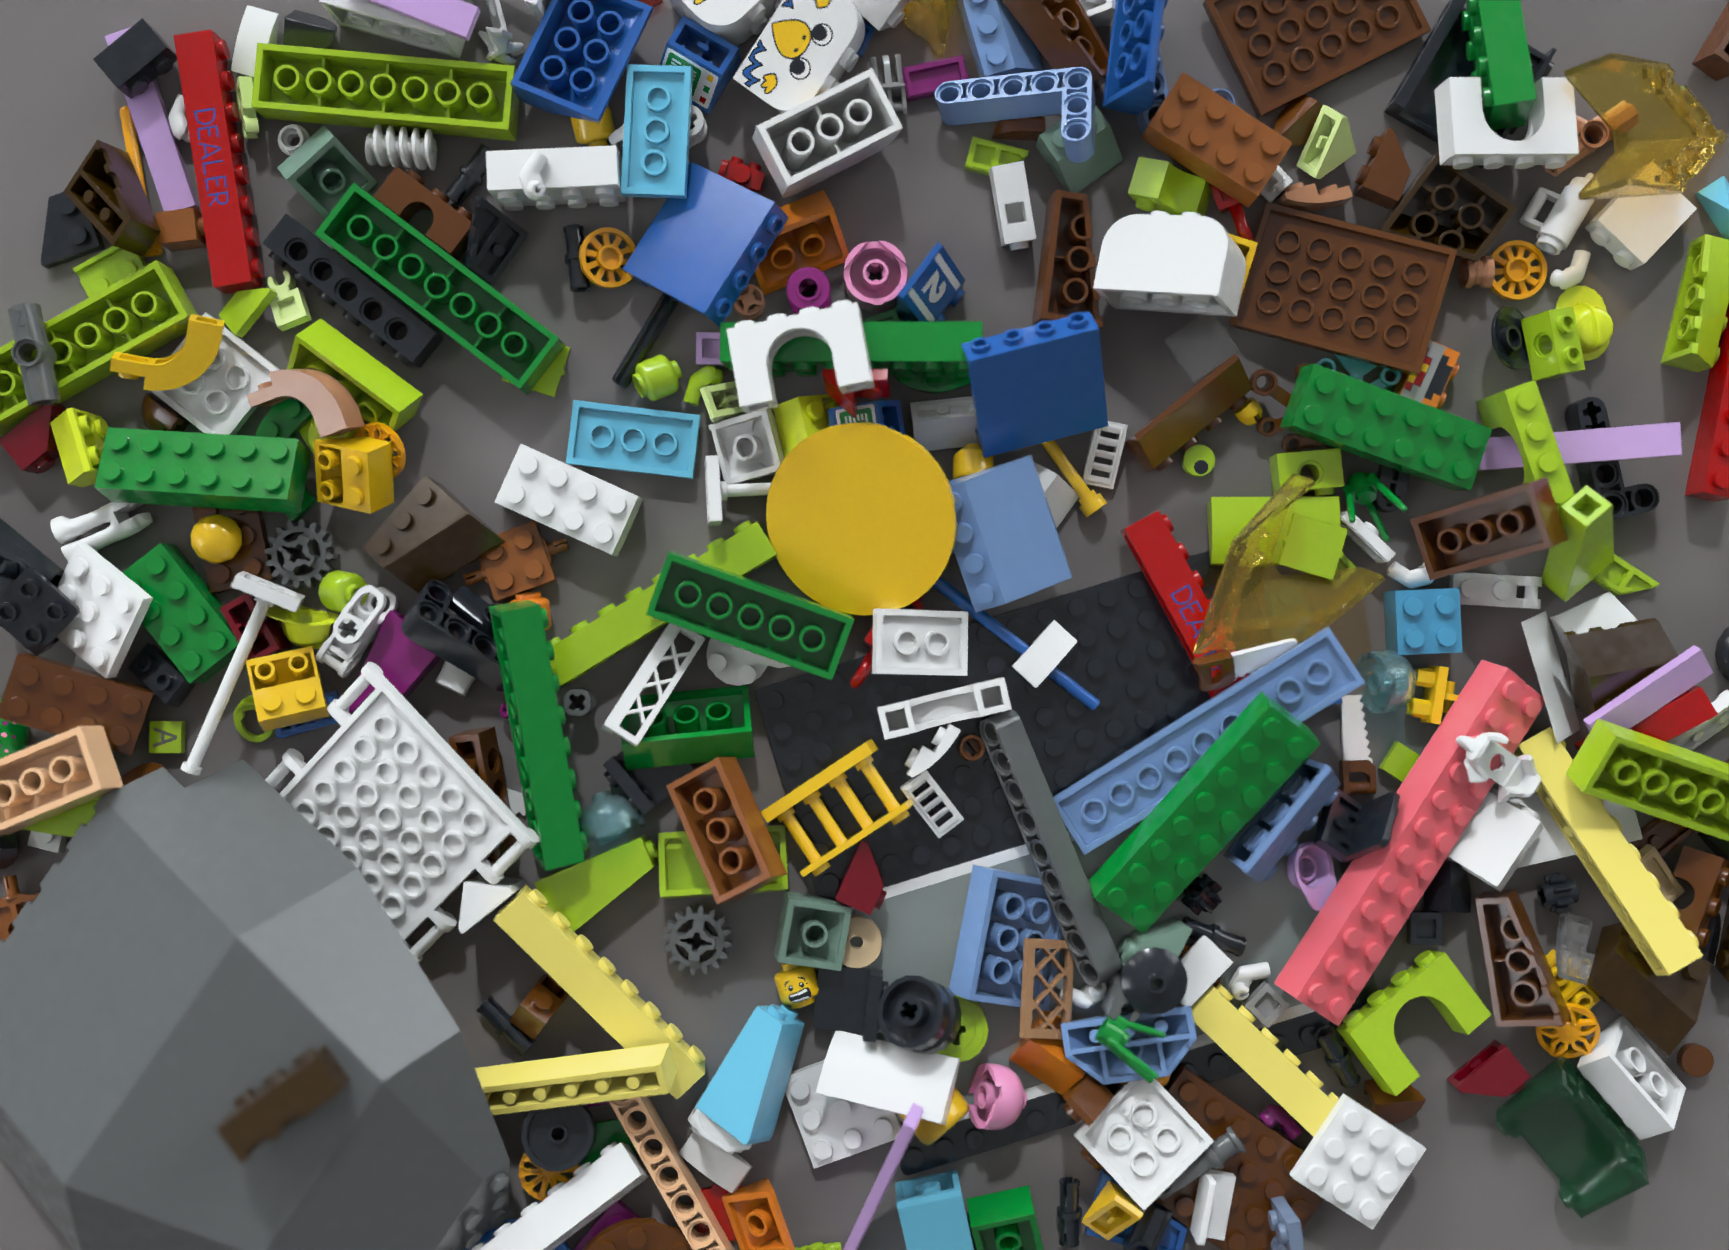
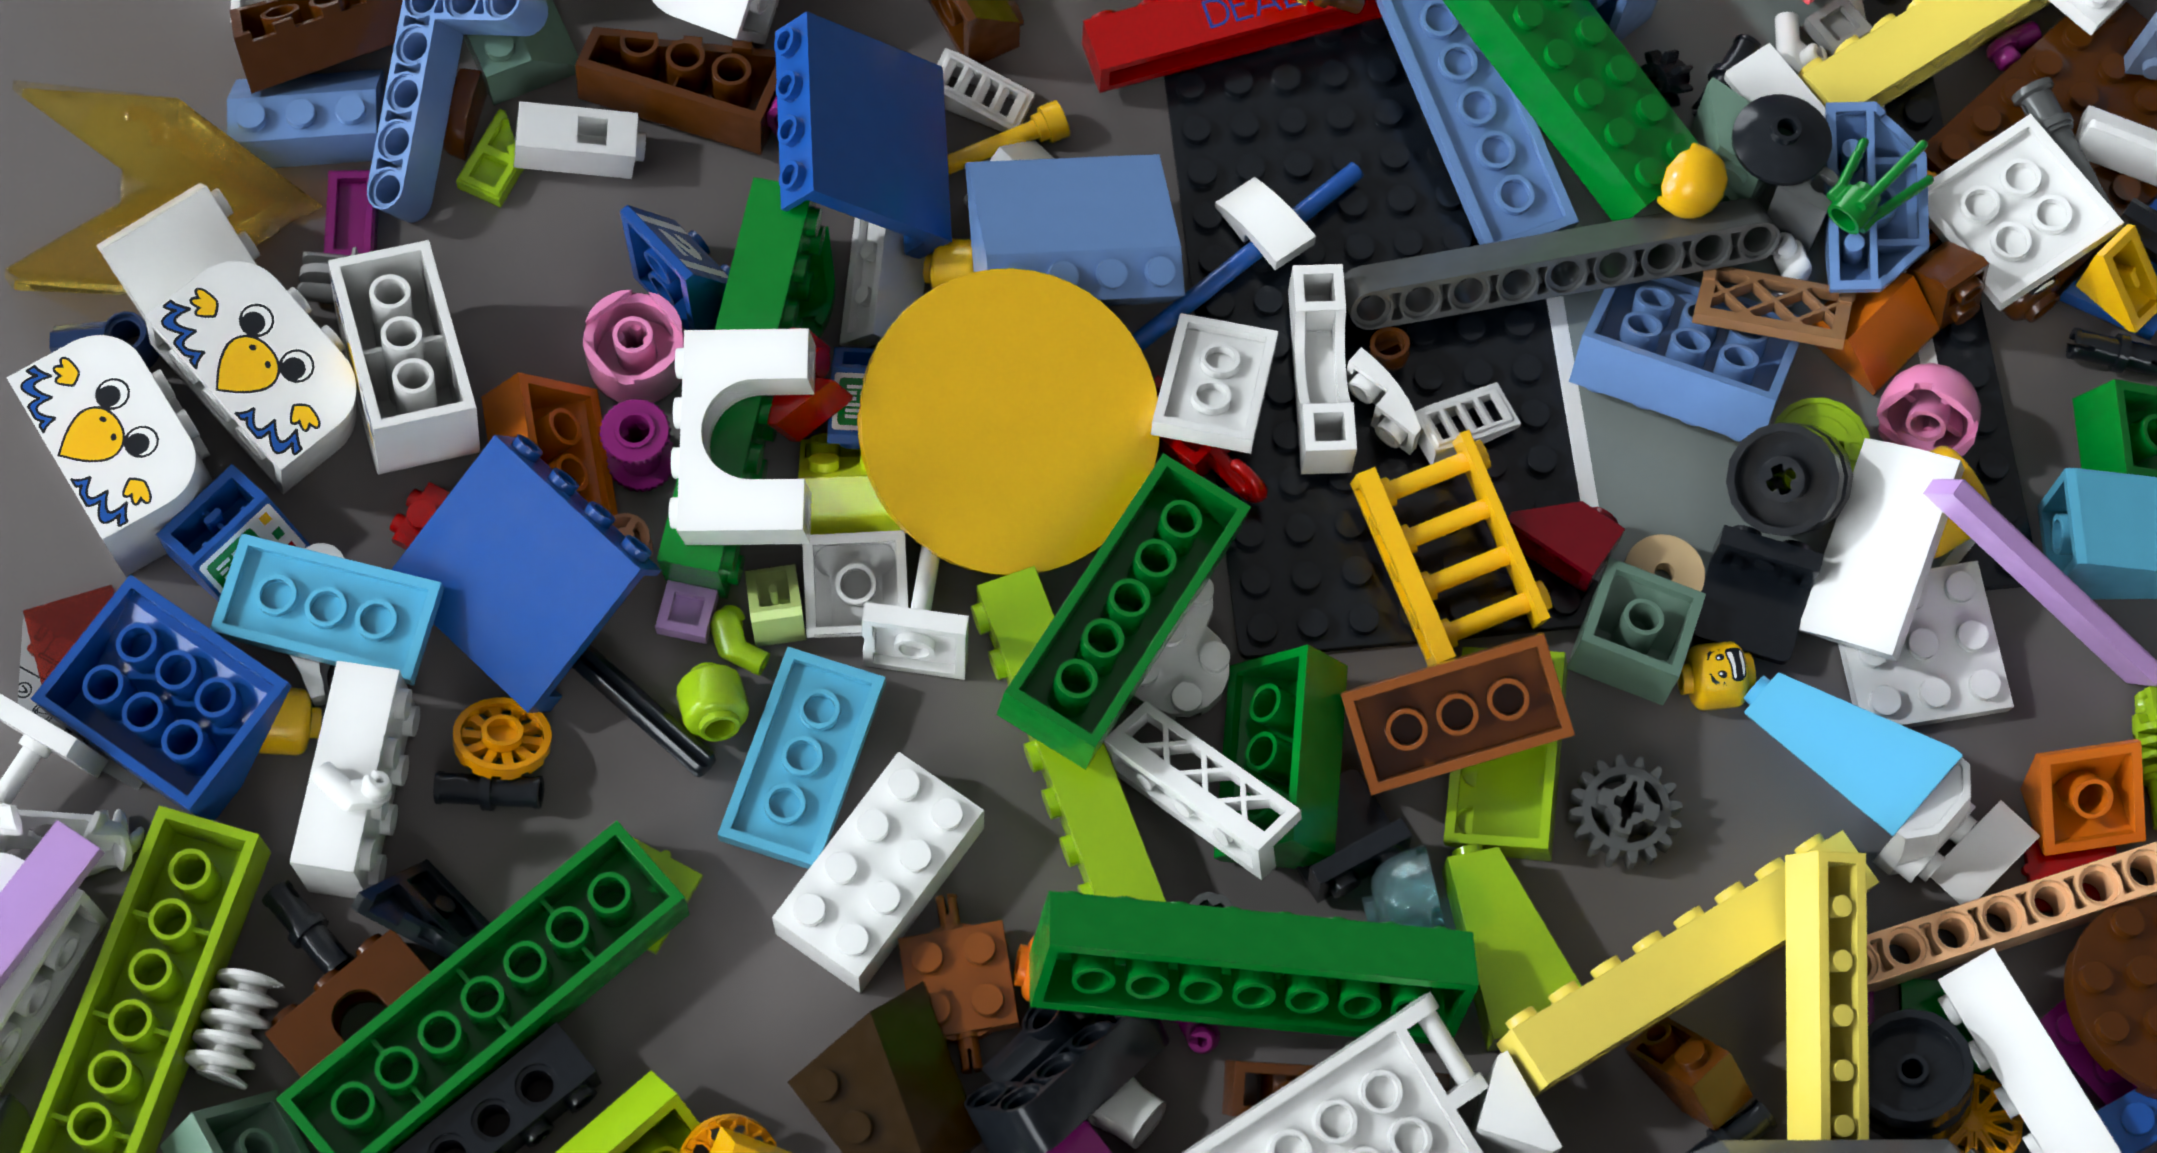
camera: 80 degrees left, 20 degrees down
(1114, 927) = (1693, 183): none -> yellow hair

